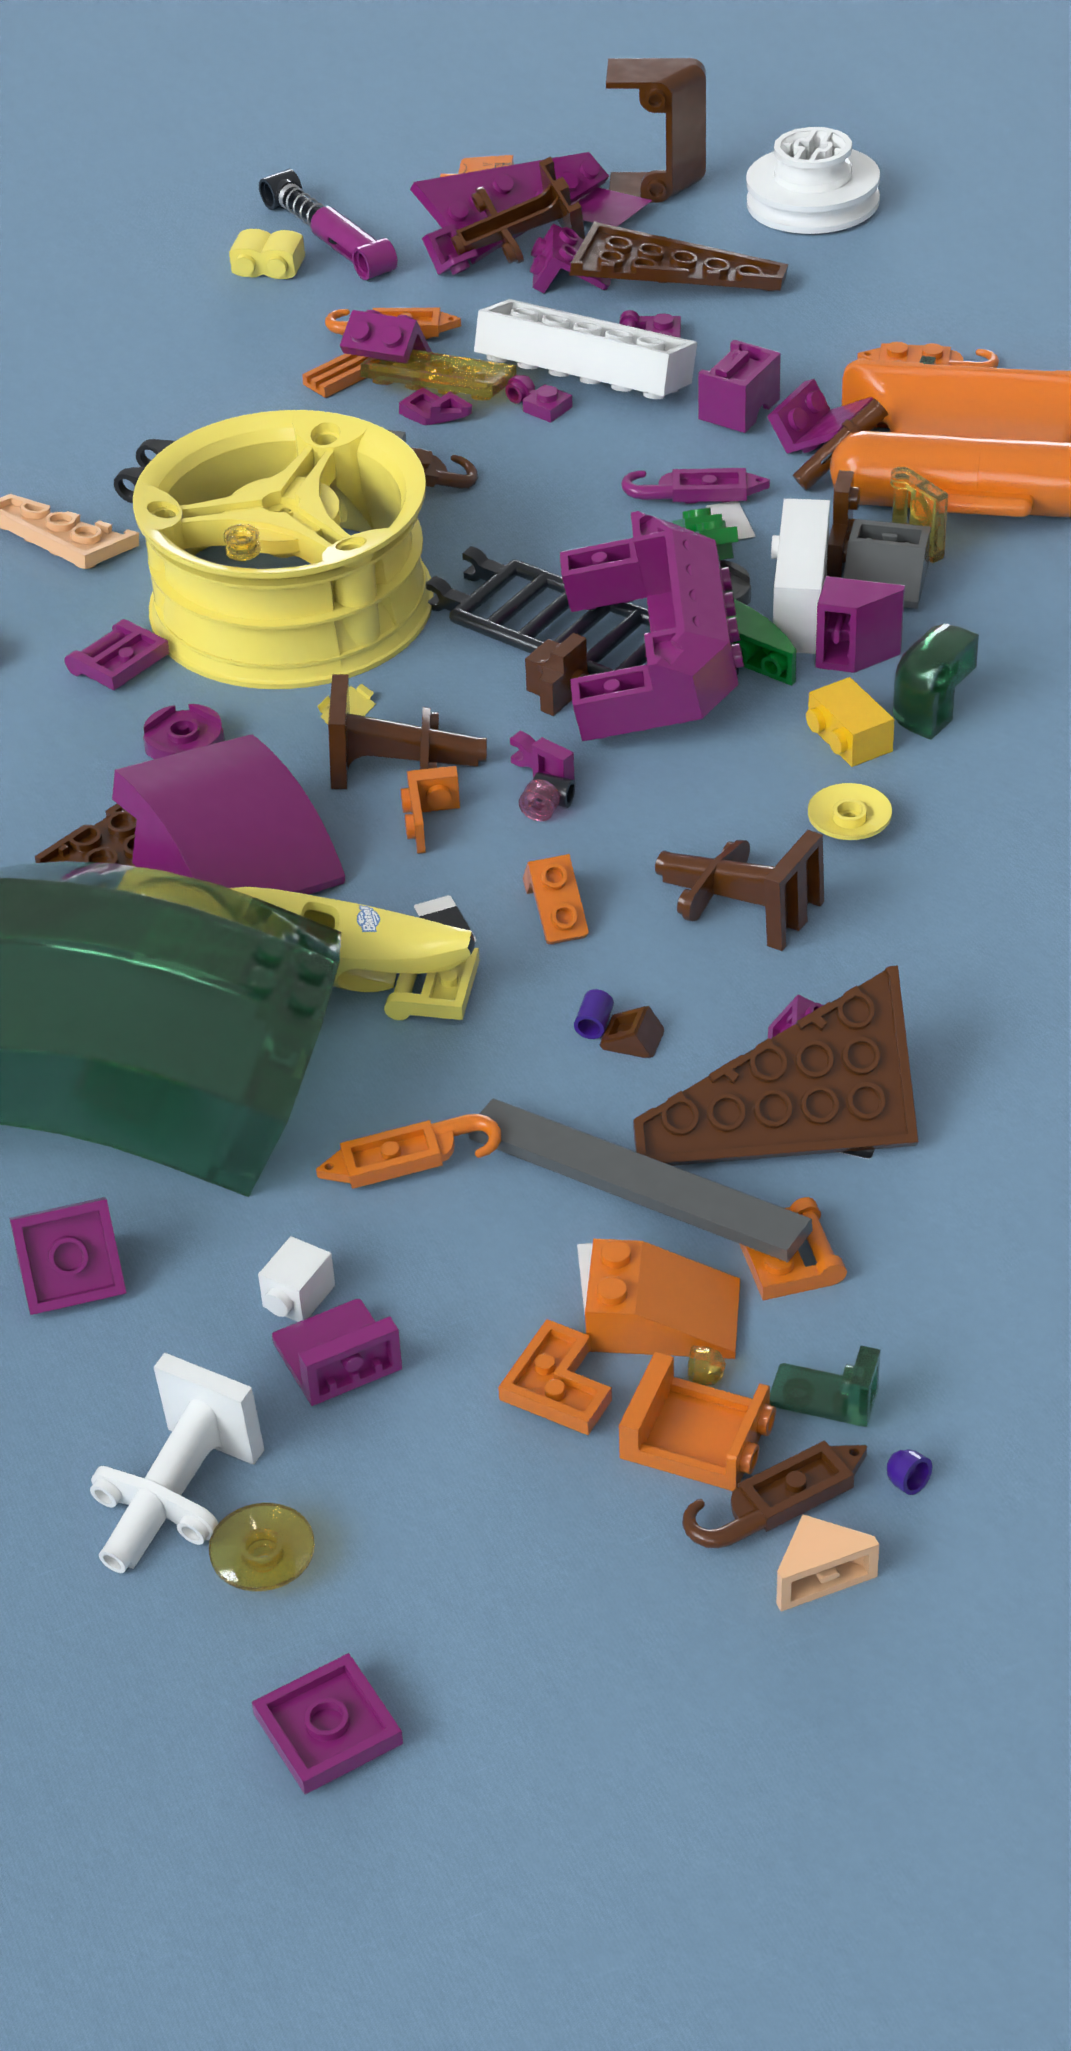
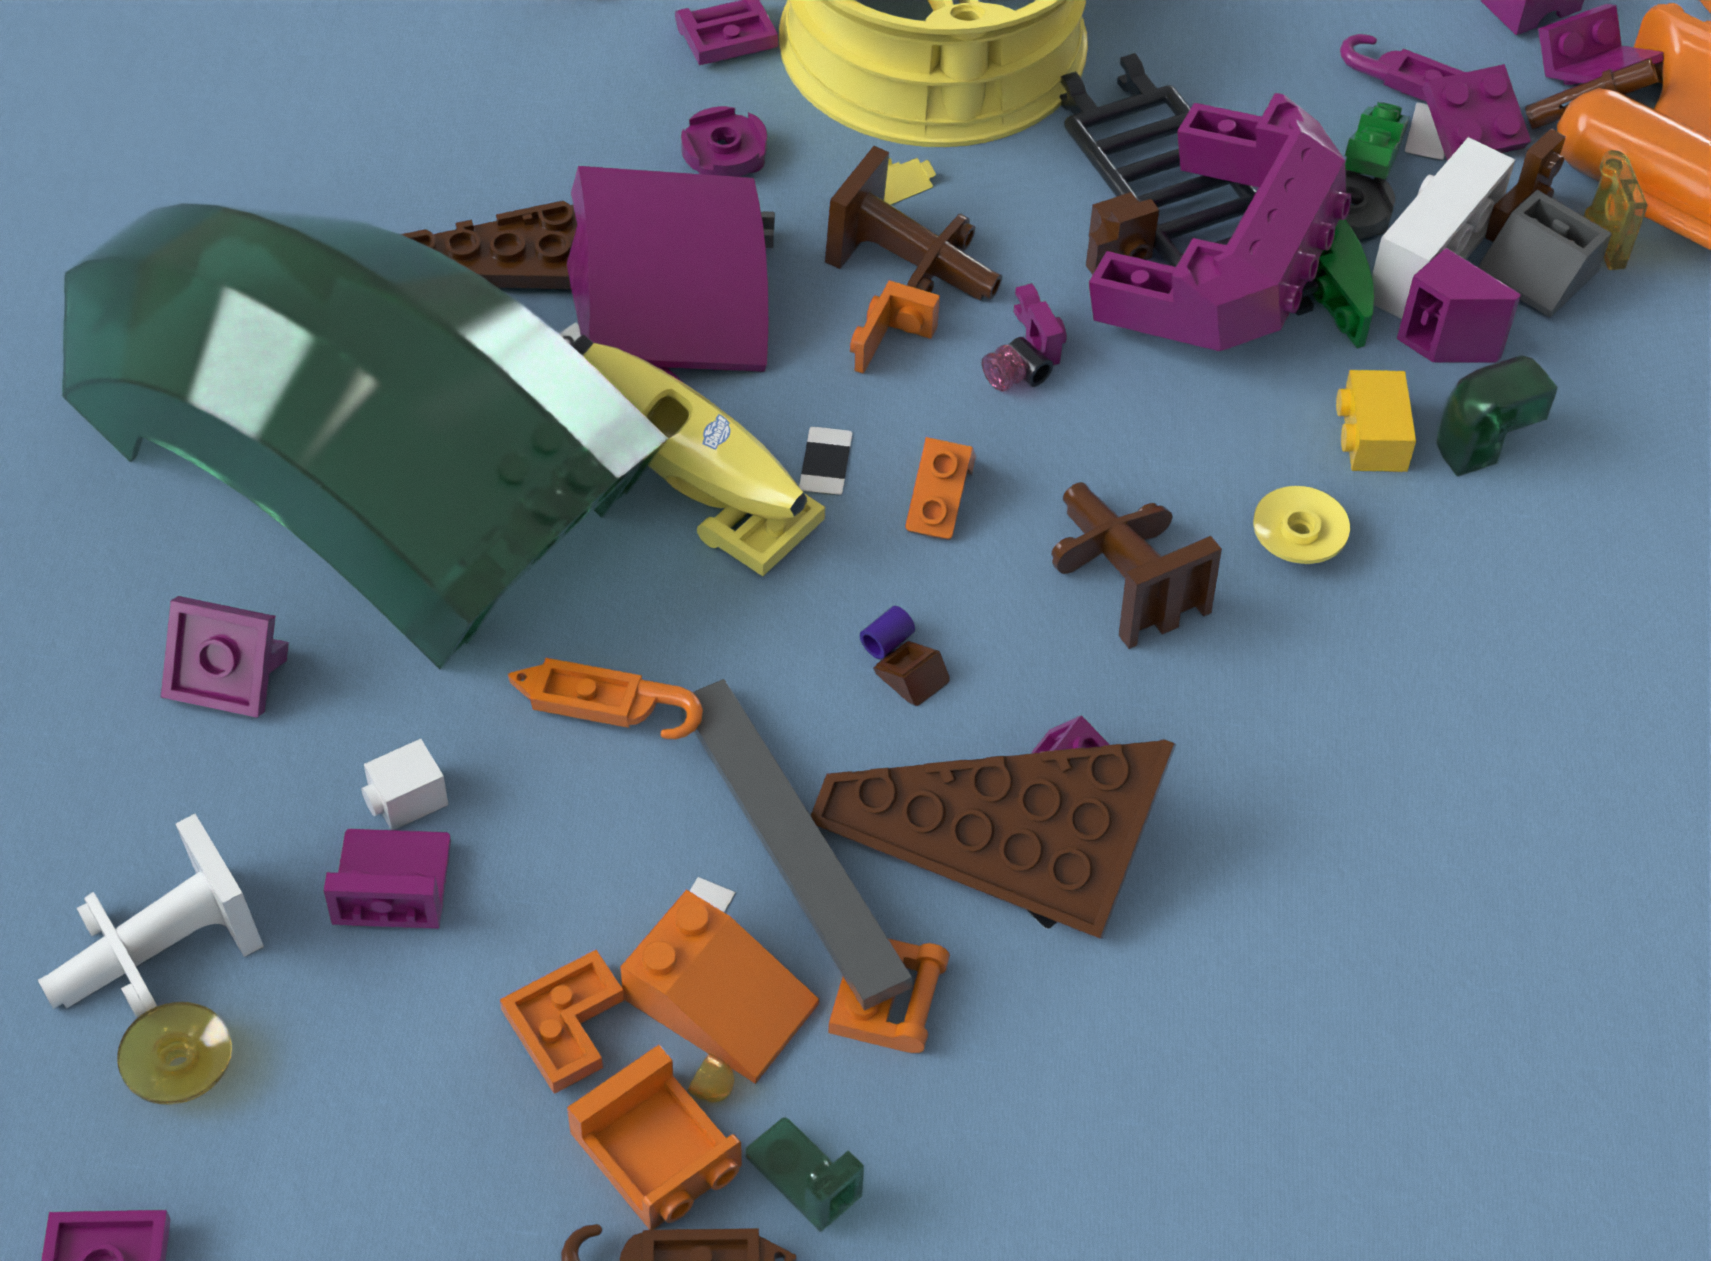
camera: 25 degrees right, 10 degrees up
(757, 491) = (1477, 107): none -> magenta plate

